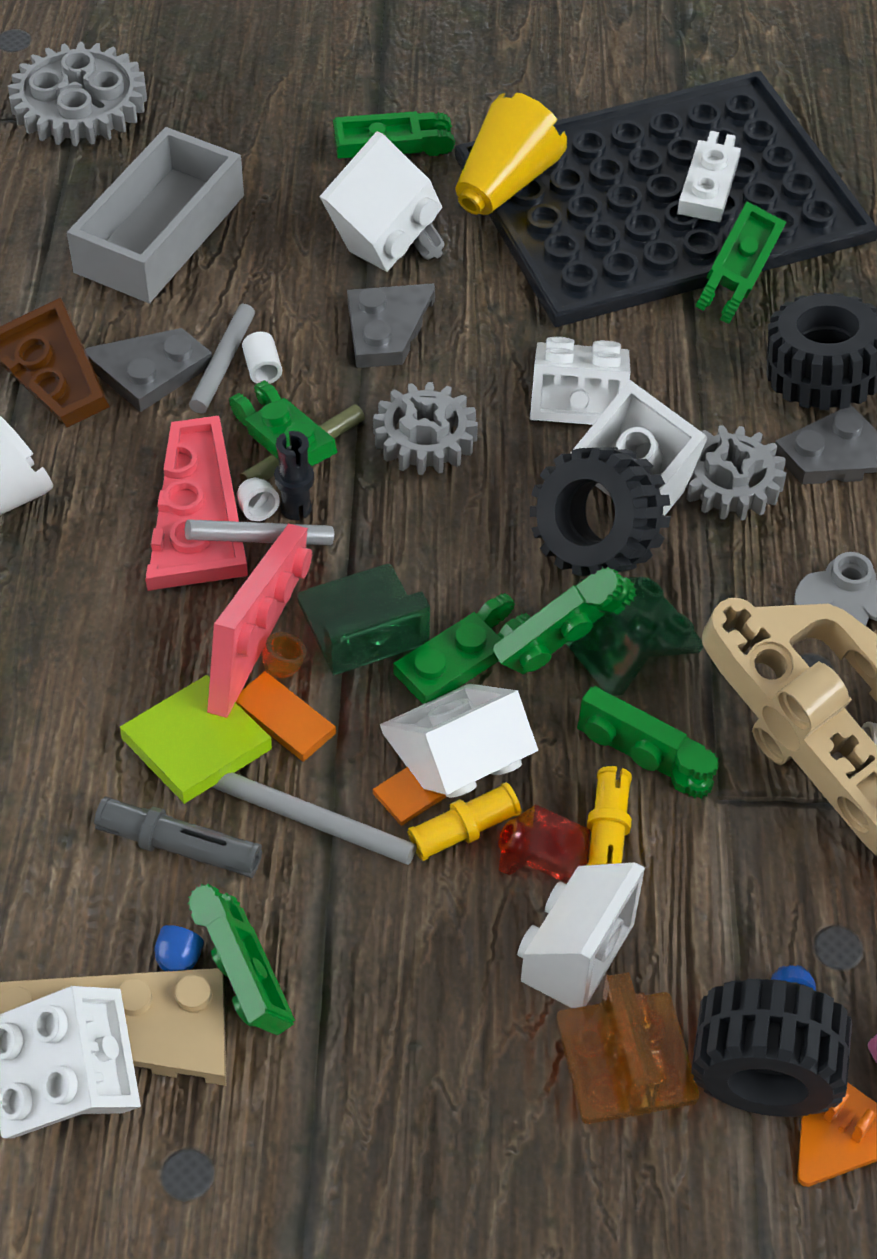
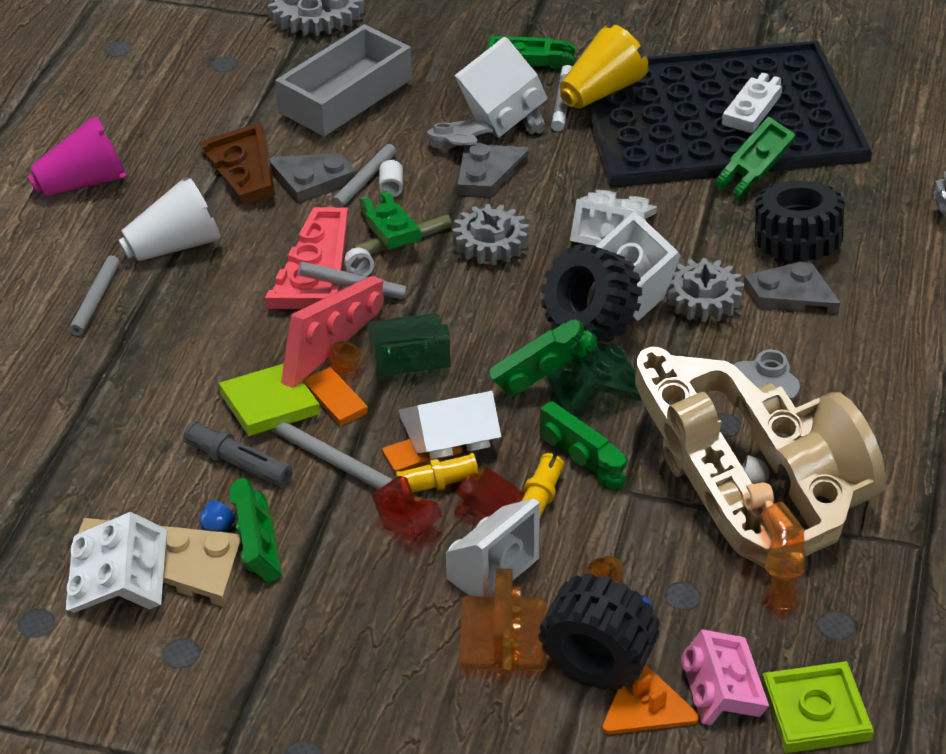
camera: 15 degrees right, 10 degrees down
(294, 475) = (384, 246): black pin -> none
(333, 275) = (457, 133): none -> light grey plate
(439, 889) = (403, 511): none -> clear red bracket
(456, 213) = (560, 109): none -> bar
(457, 652) = (465, 375): green hinge -> none
(722, 936) = (602, 566): none -> clear orange hinge

